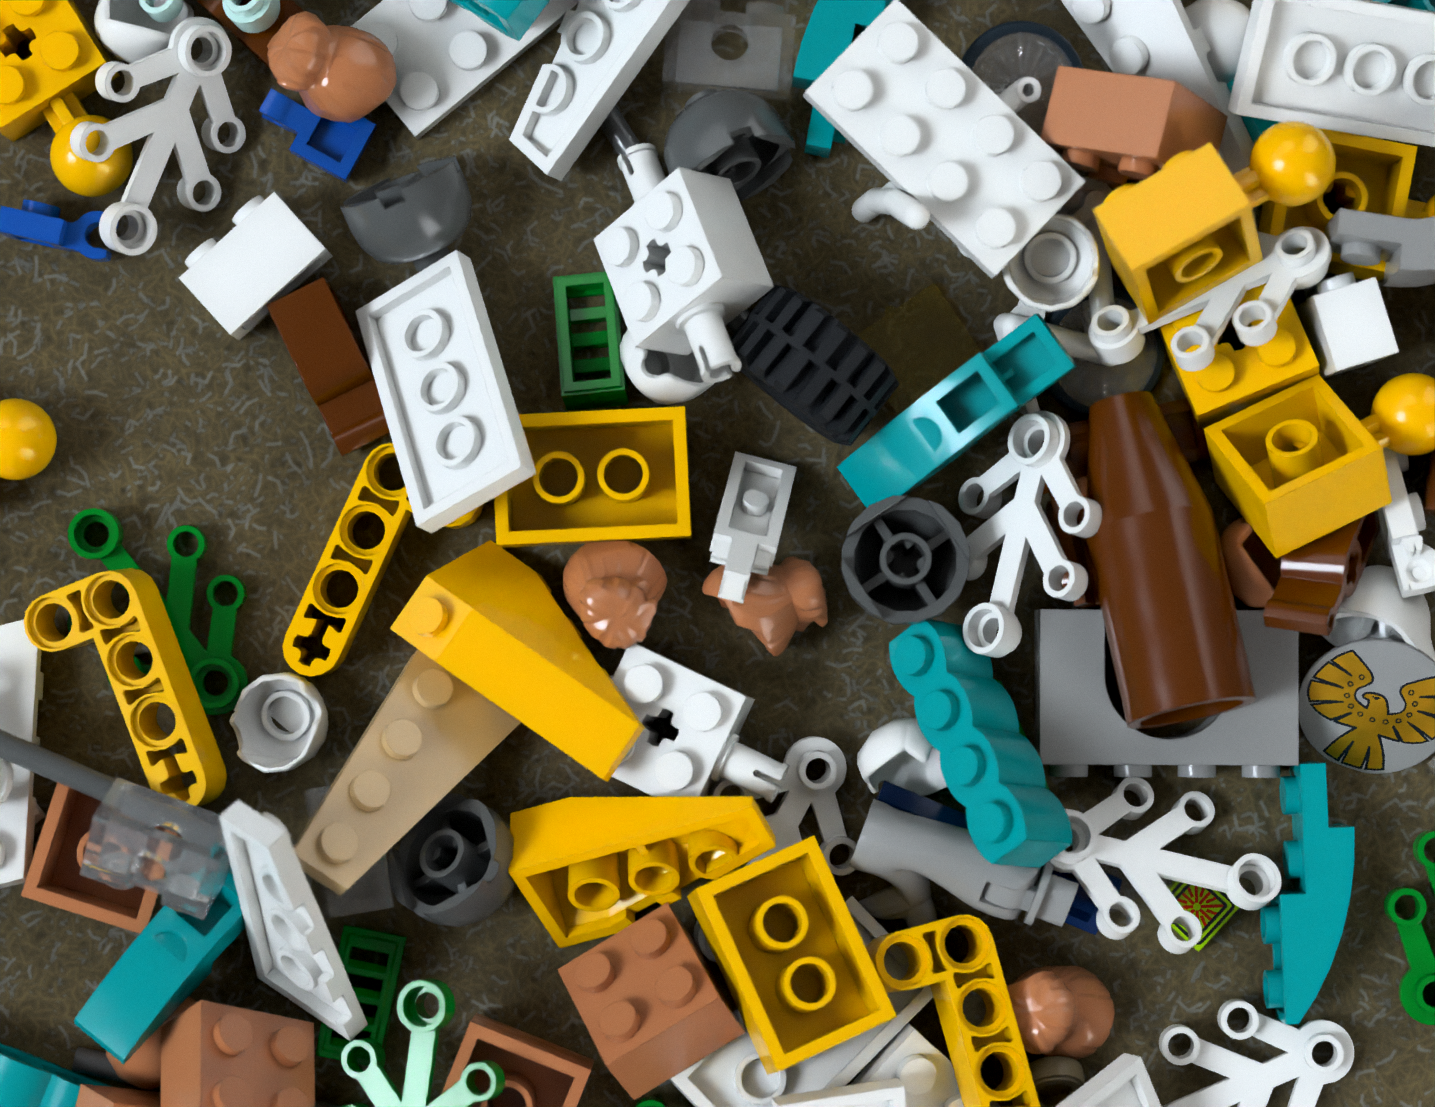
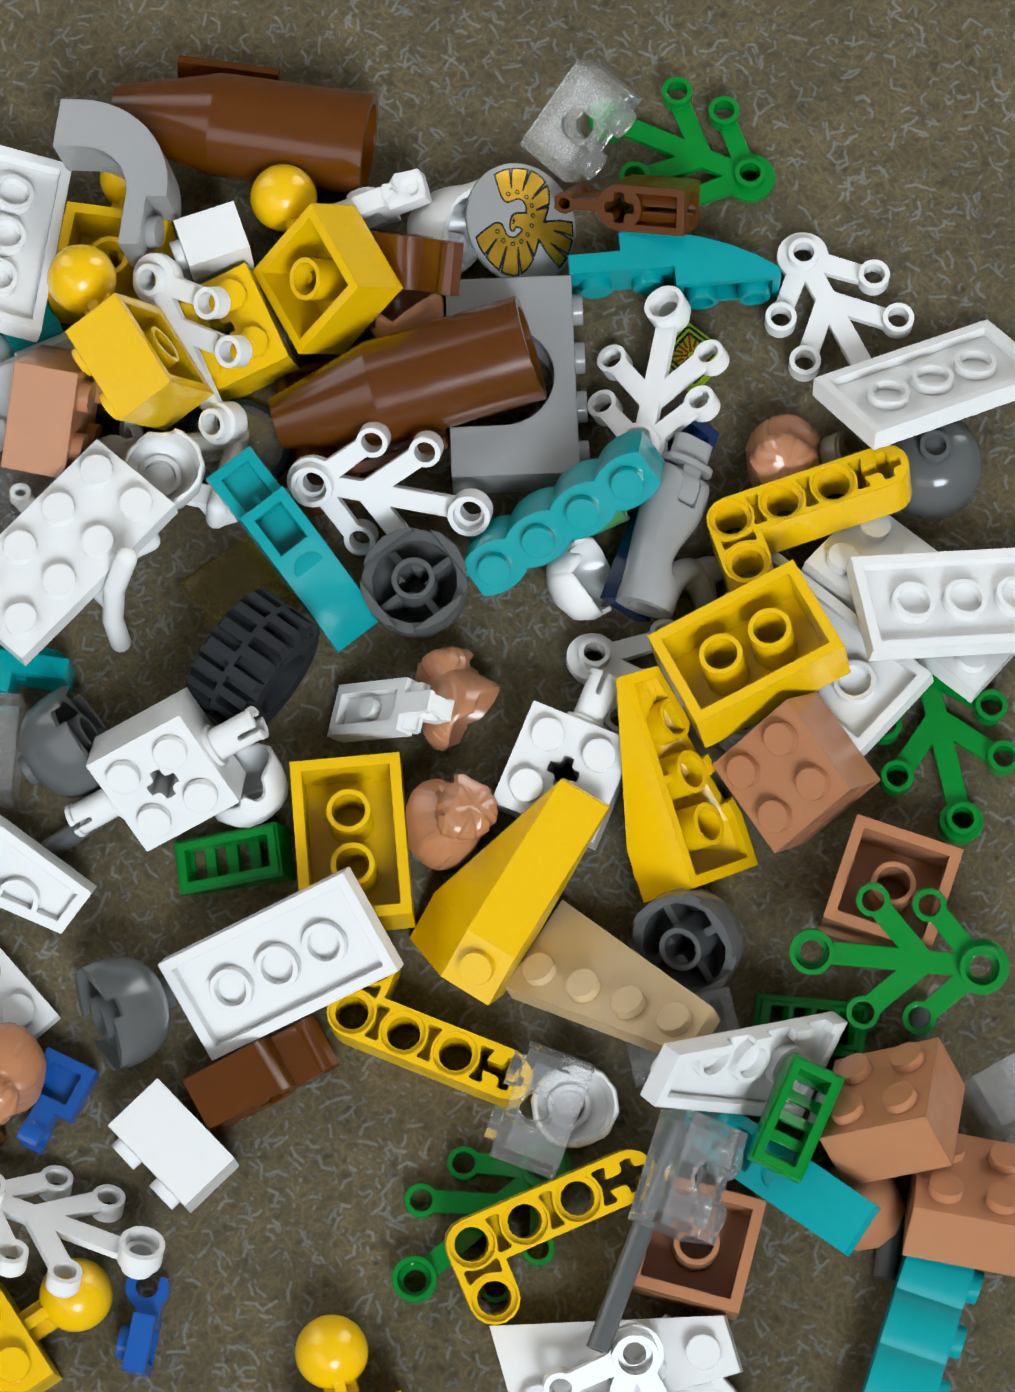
camera: 95 degrees left, 15 degrees down
(226, 682) = (539, 1143): none -> clear brick
(232, 1004) = (815, 1077): none -> green slope
(1391, 851) = (657, 202): none -> reddish brown piece

